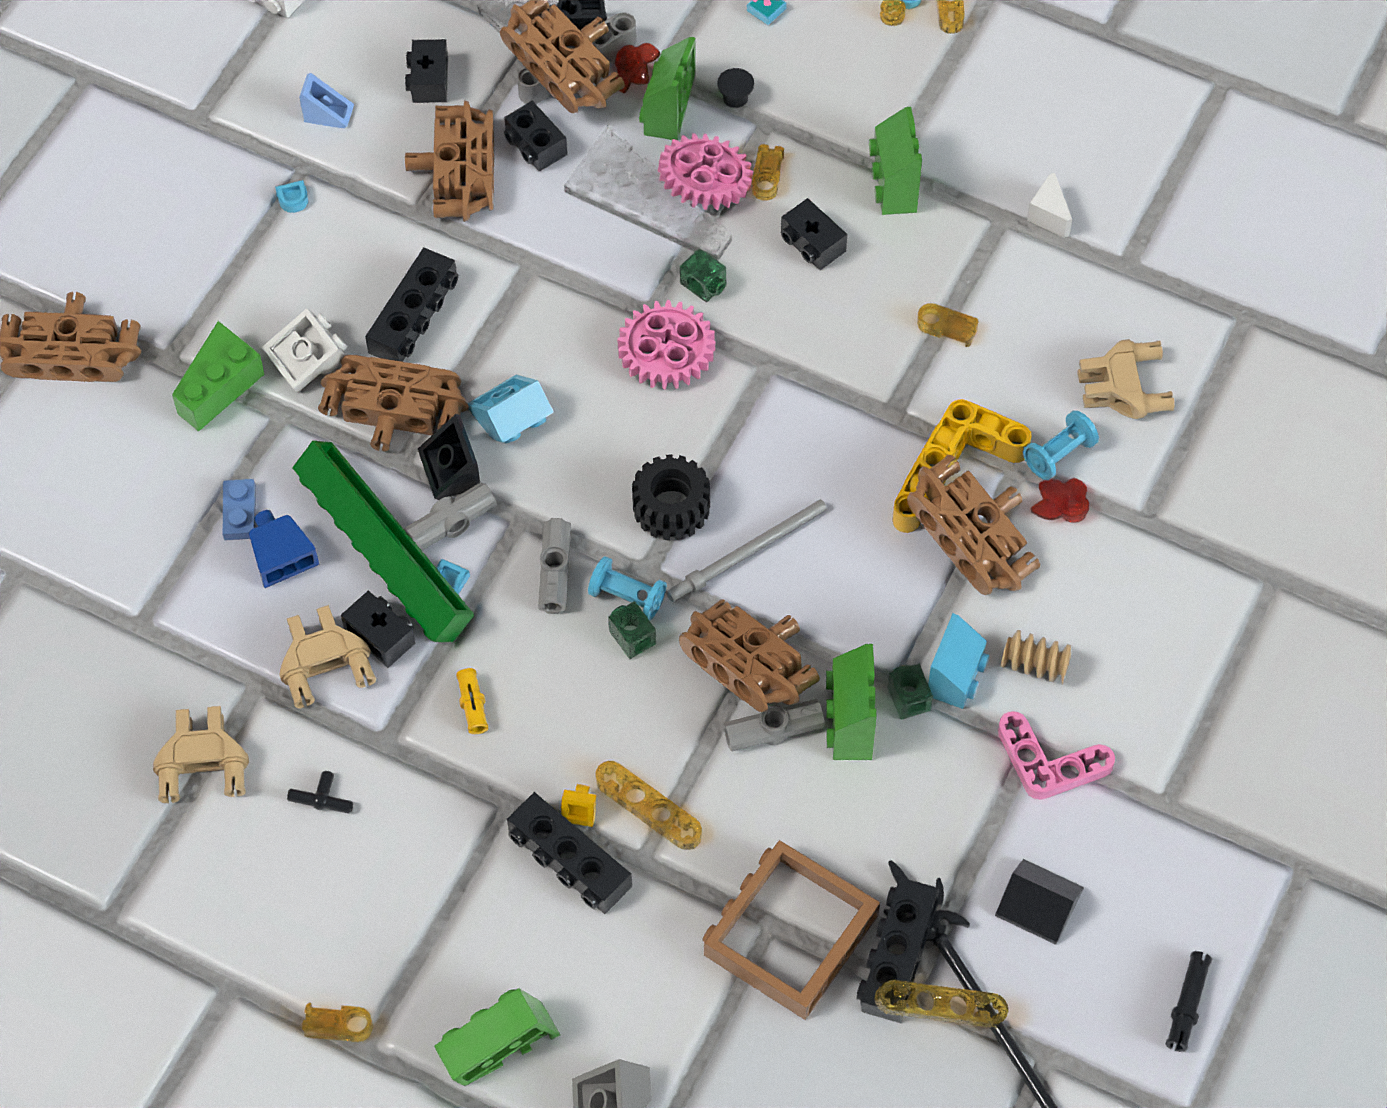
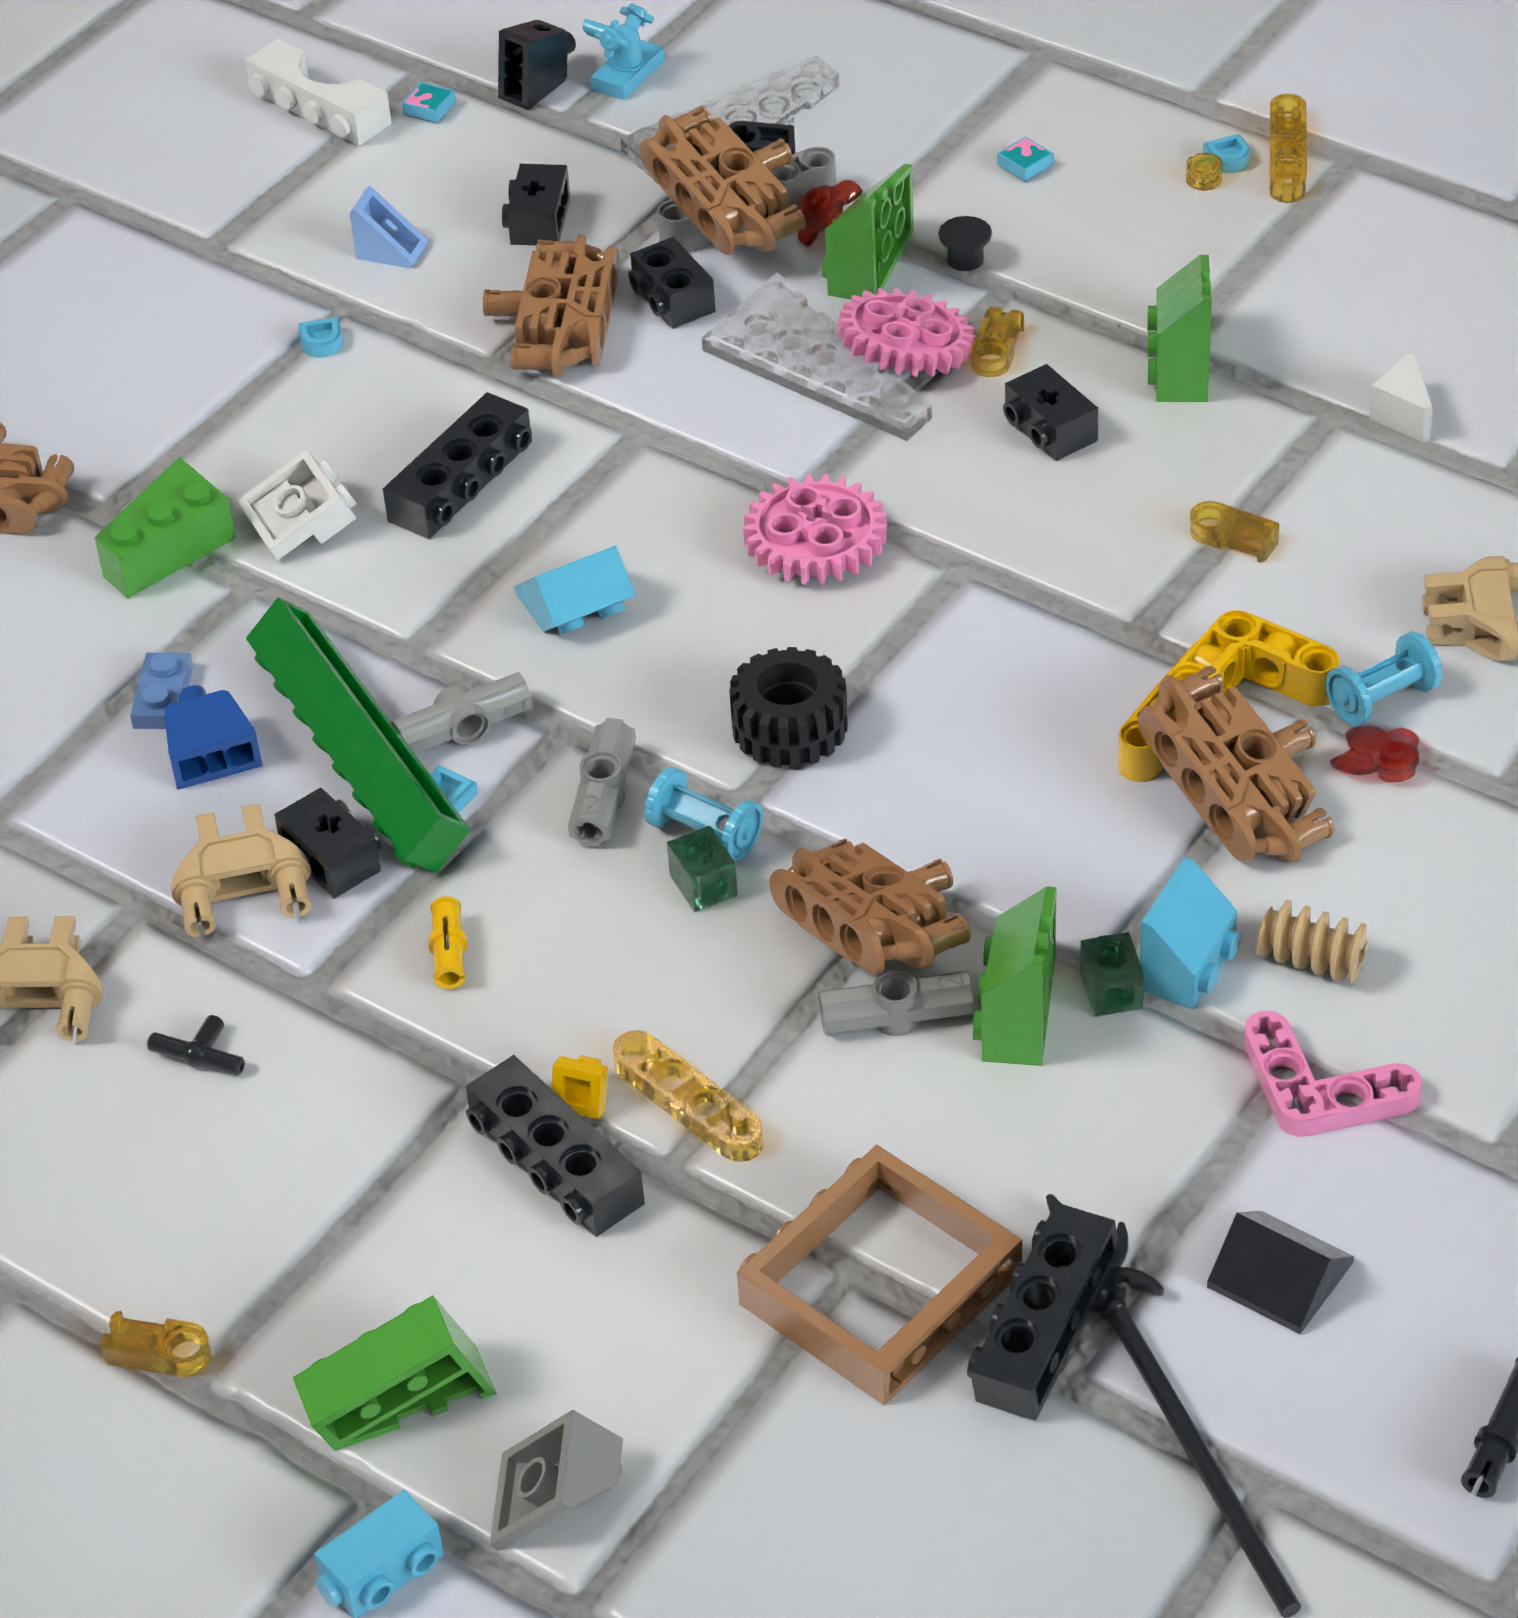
camera: 10 degrees right, 15 degrees down
(380, 384) = (410, 567): medium nougat piece -> none
(449, 460) = (475, 641): black slope -> none
(698, 579) = (812, 814): light grey bar -> none
(703, 275) = (882, 451): clear green brick -> none
(941, 1009) = (1098, 1391): clear yellow beam -> none

